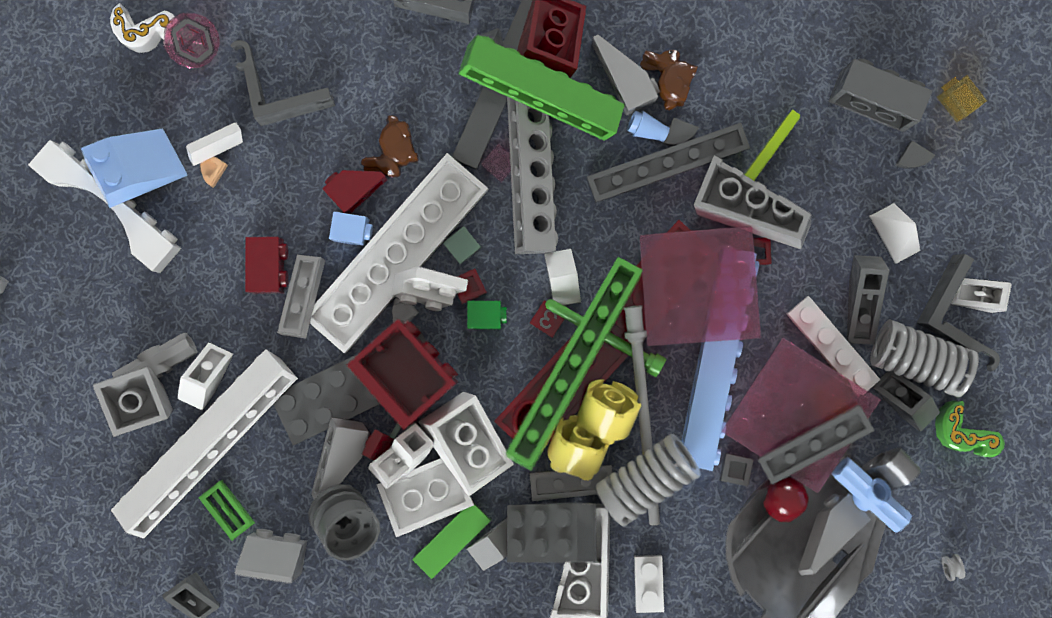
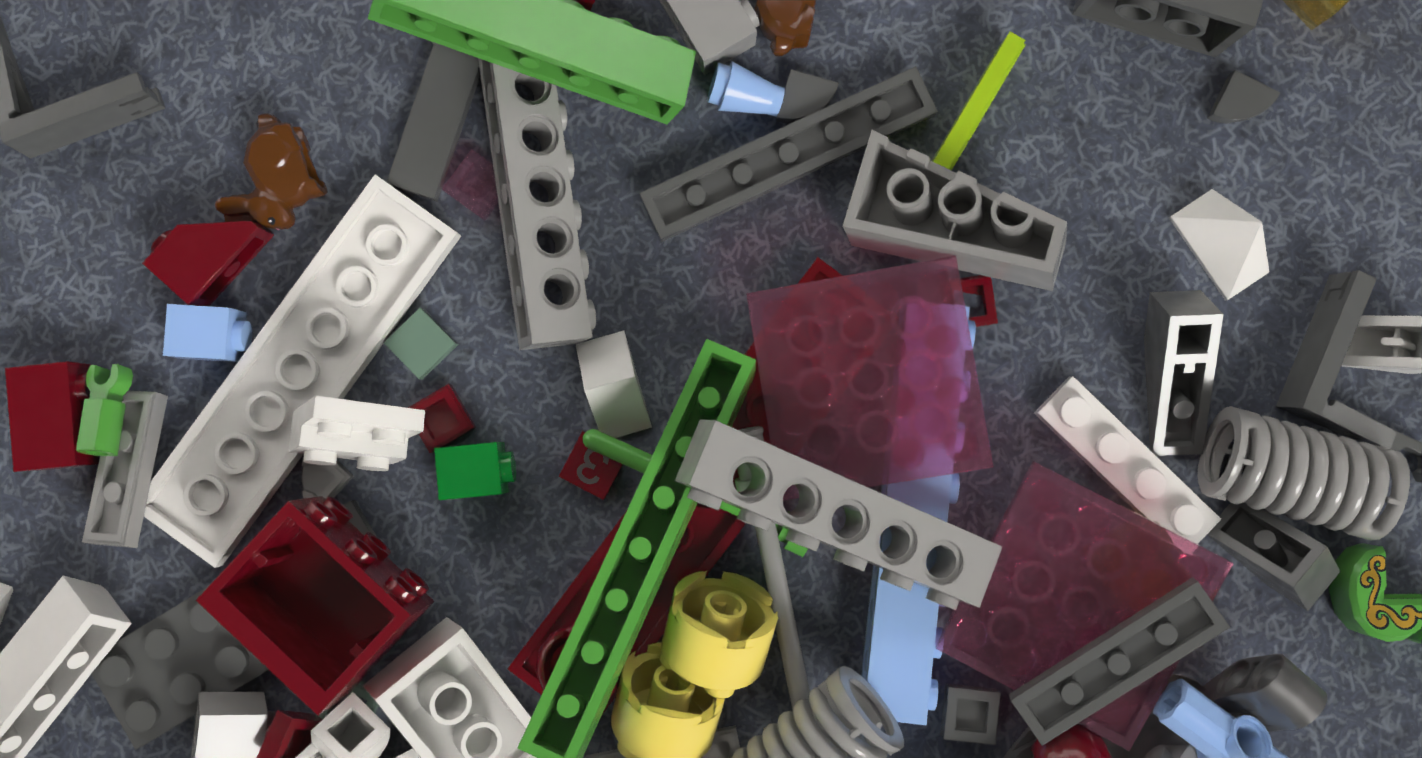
camera: 10 degrees left, 0 degrees up
(294, 265) = (104, 410): none -> bright green bar
(740, 383) = (962, 560): none -> light grey brick

